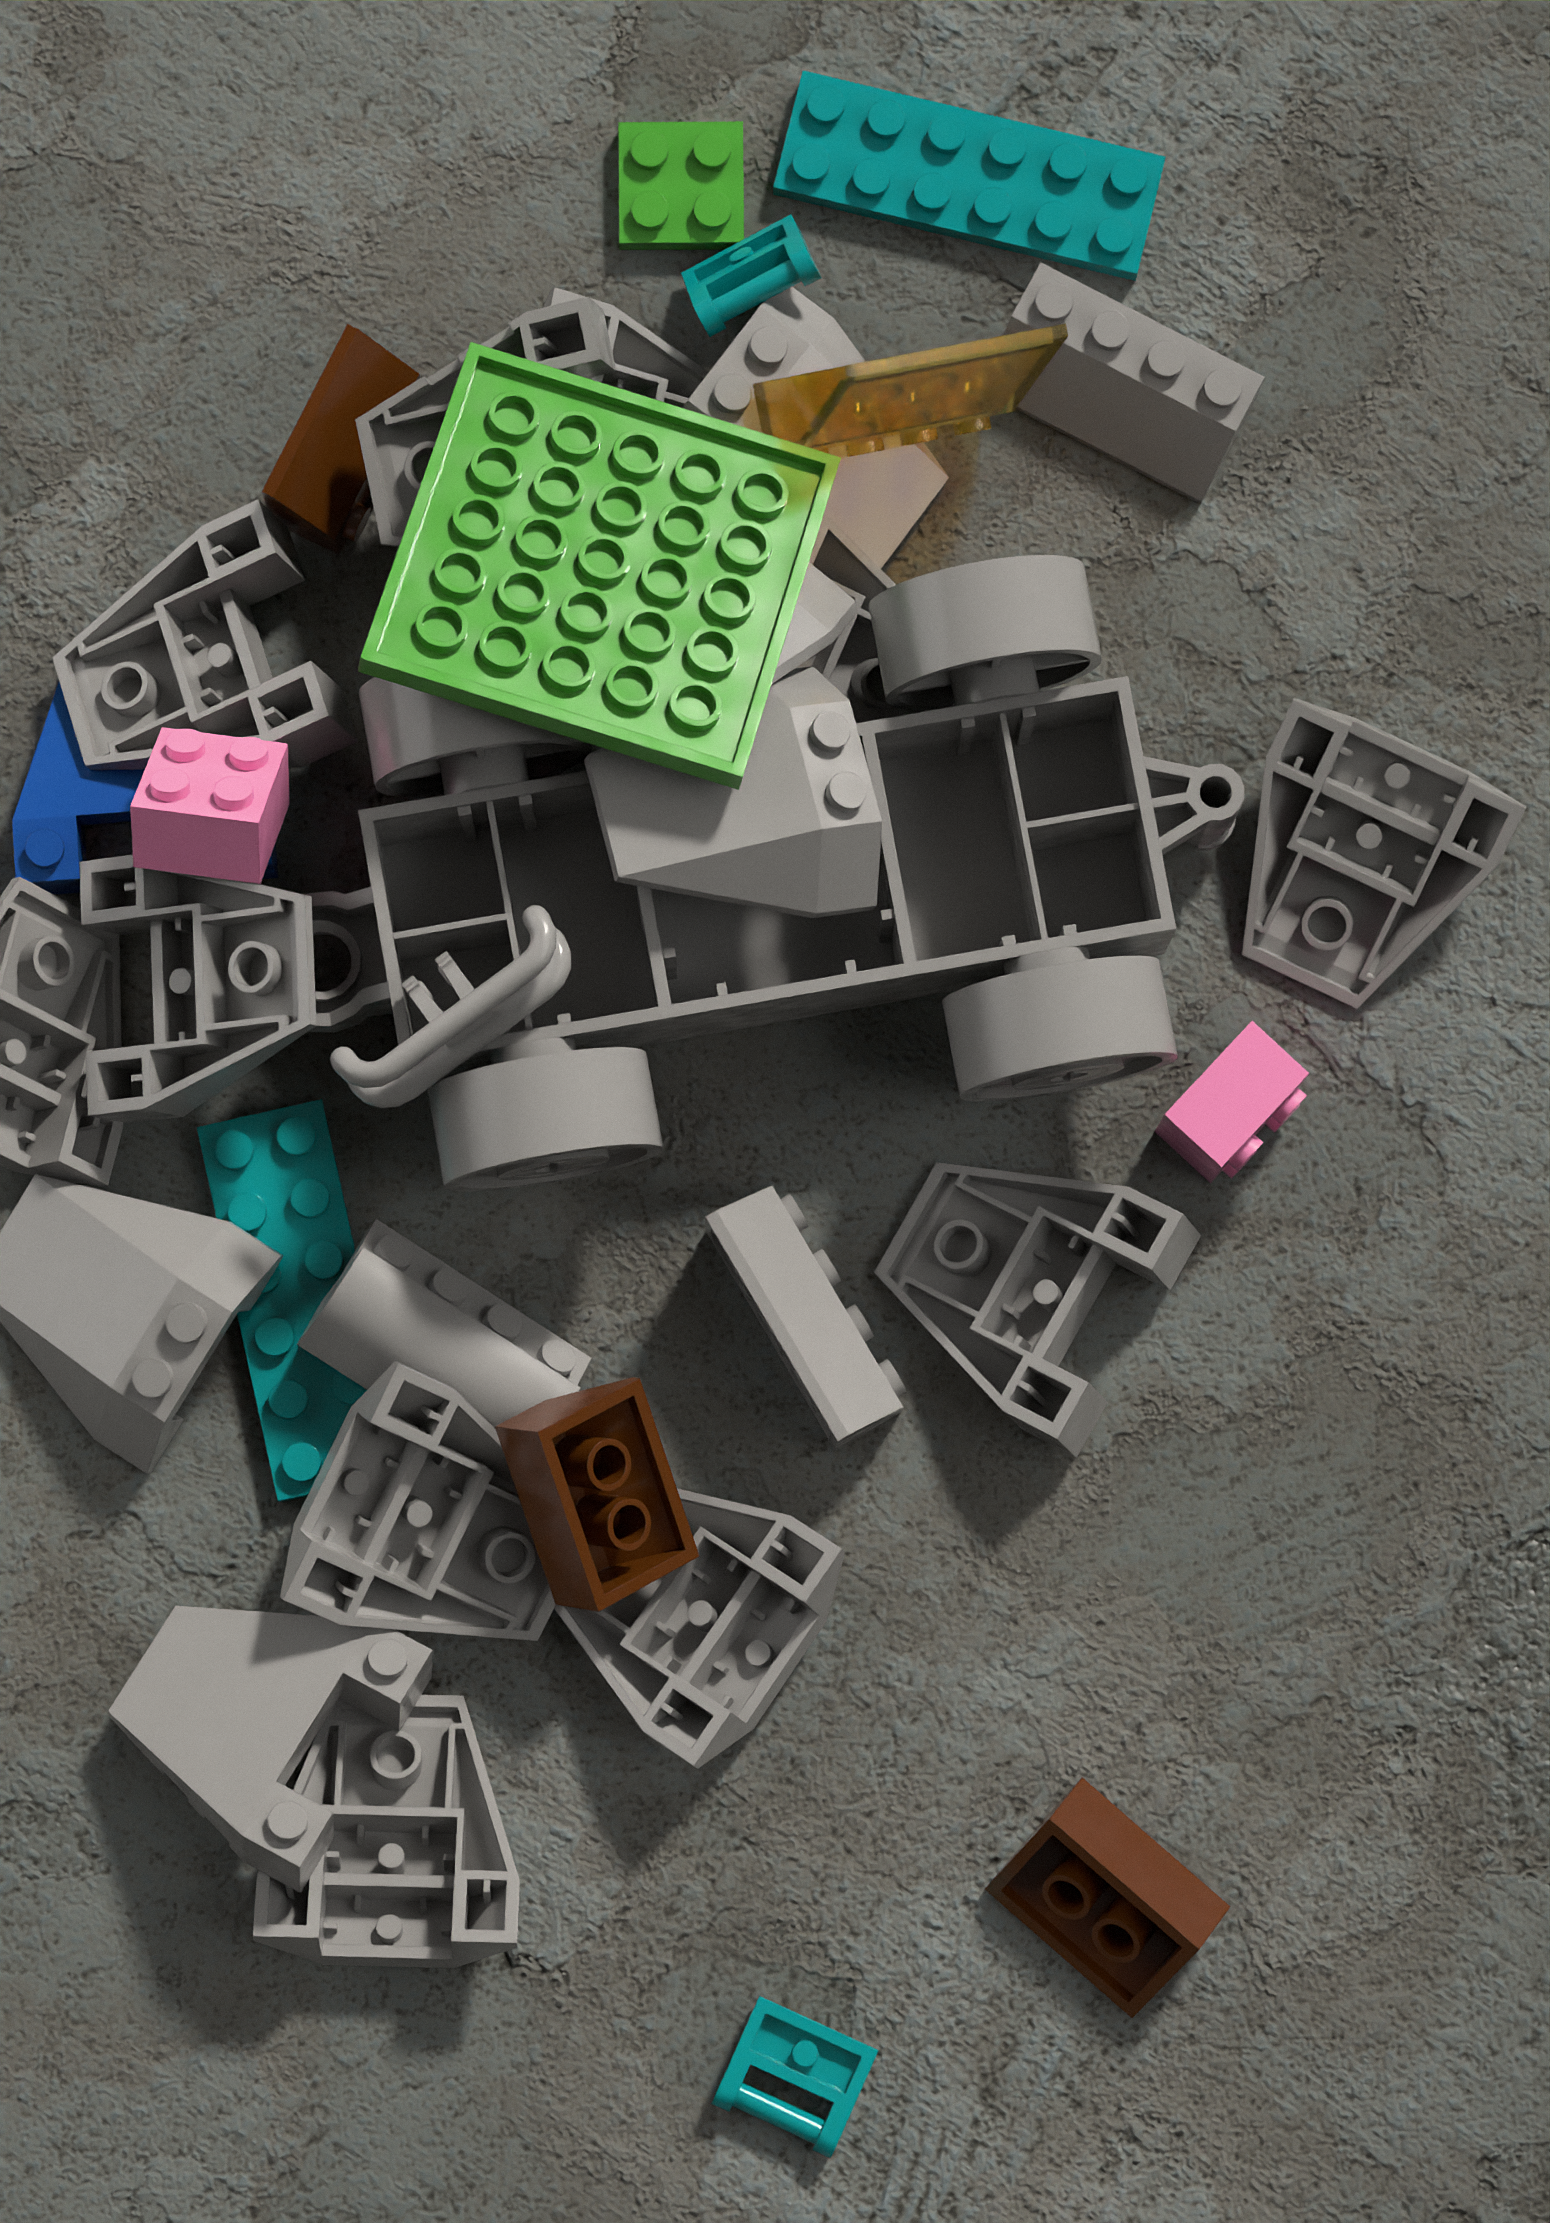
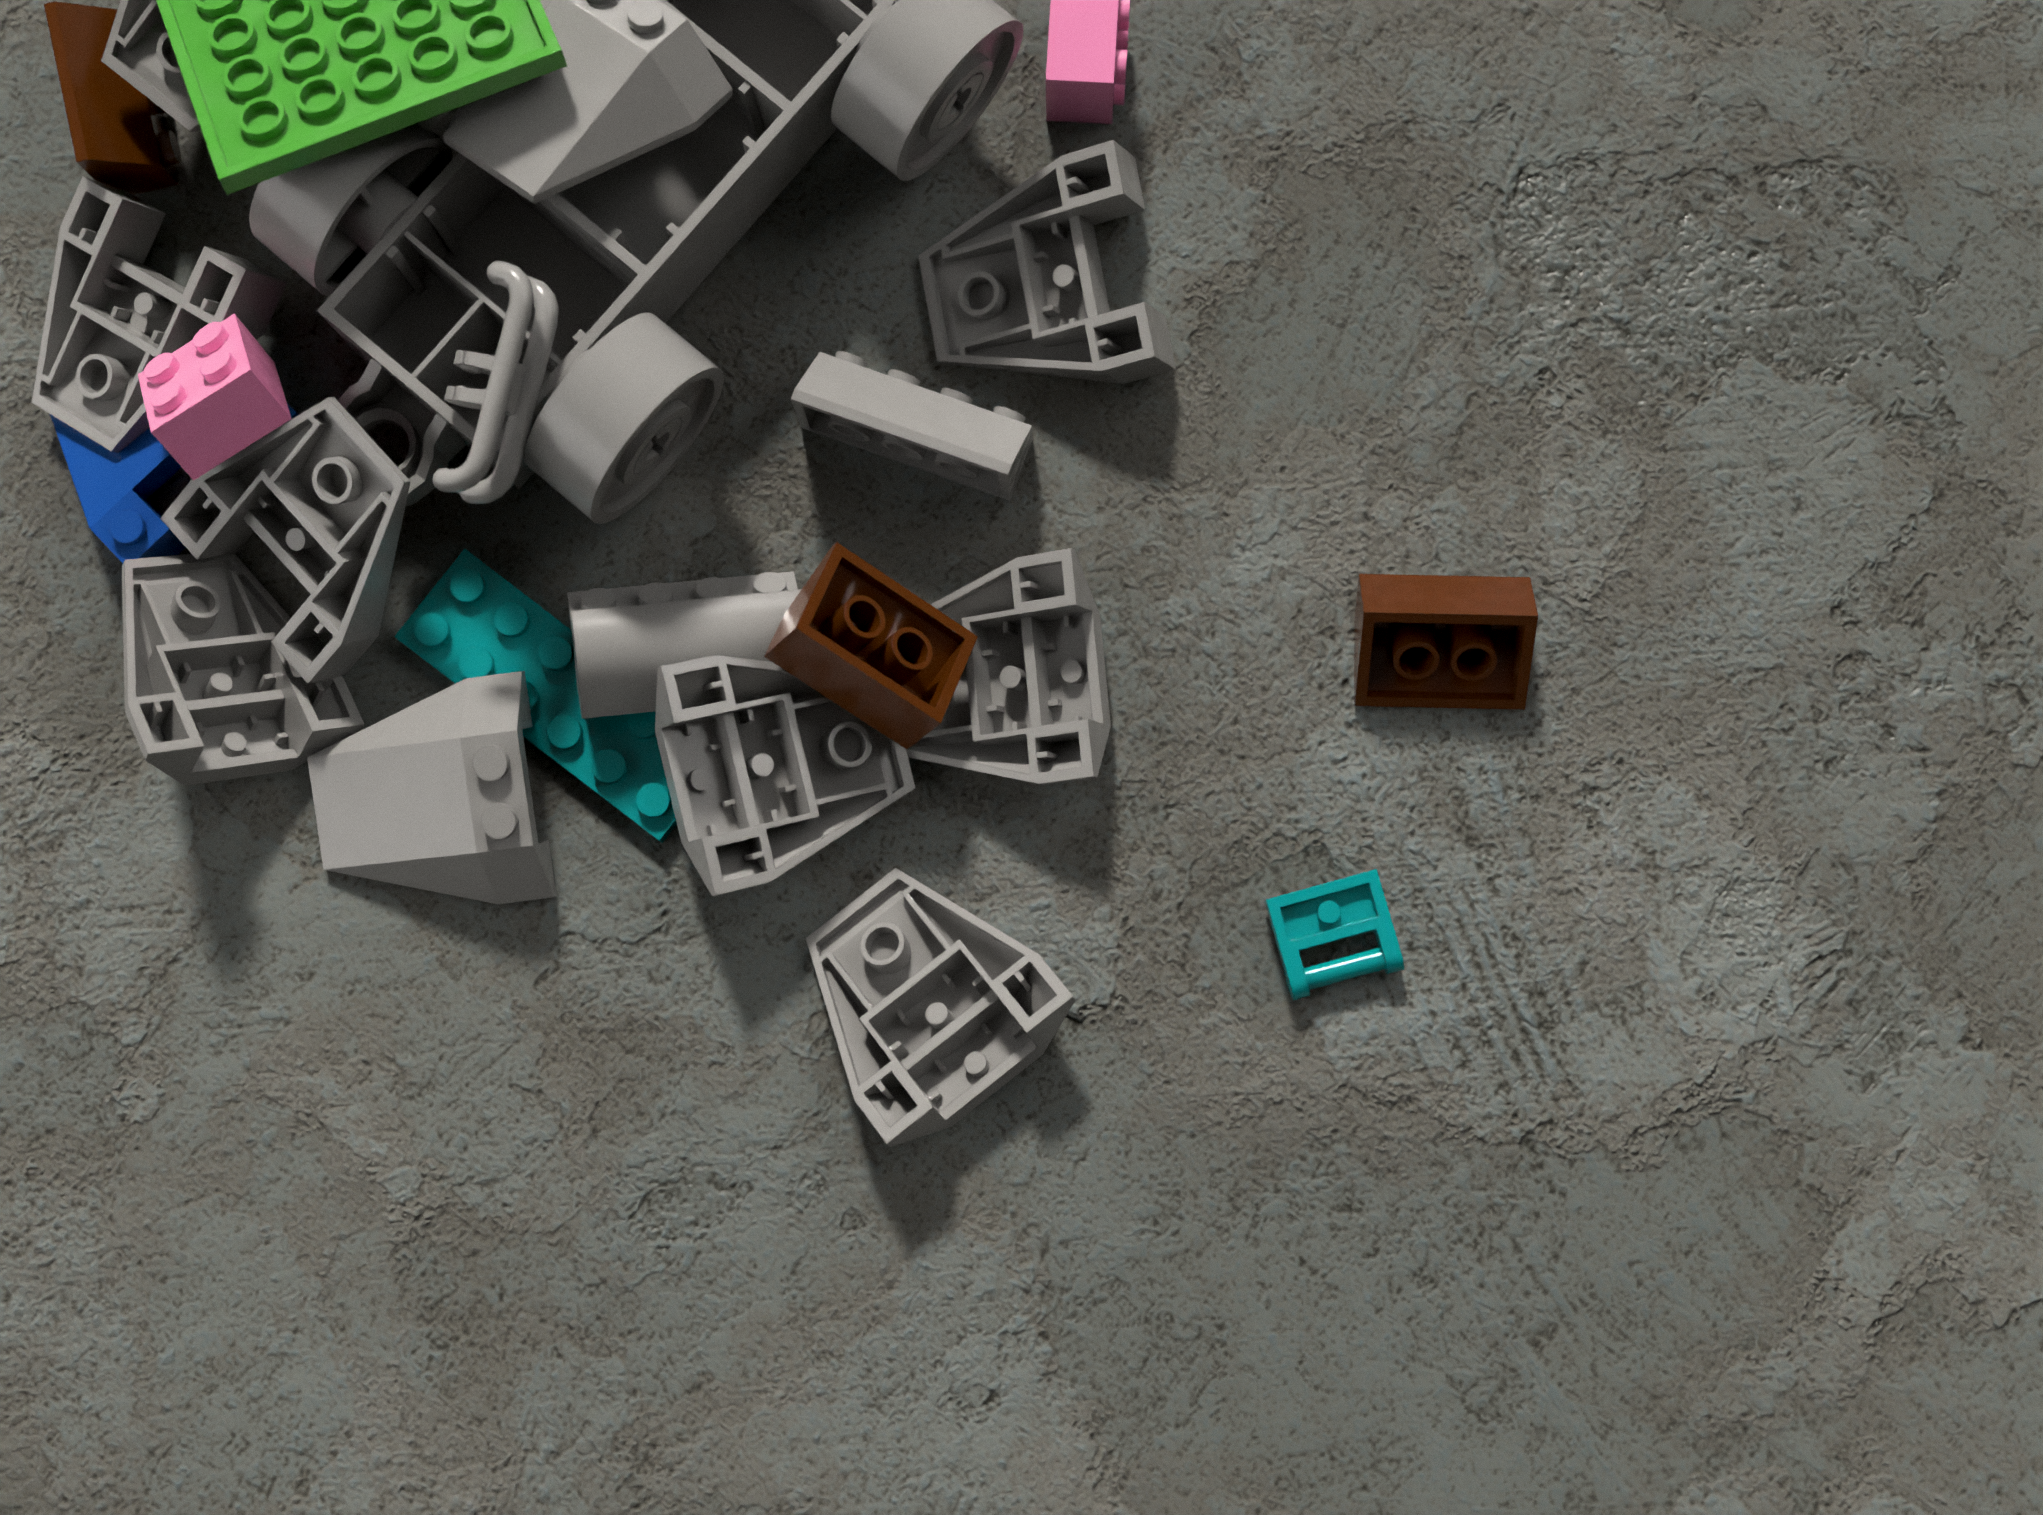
camera: 30 degrees left, 0 degrees up
(235, 1704) = (746, 999): light grey wedge -> none

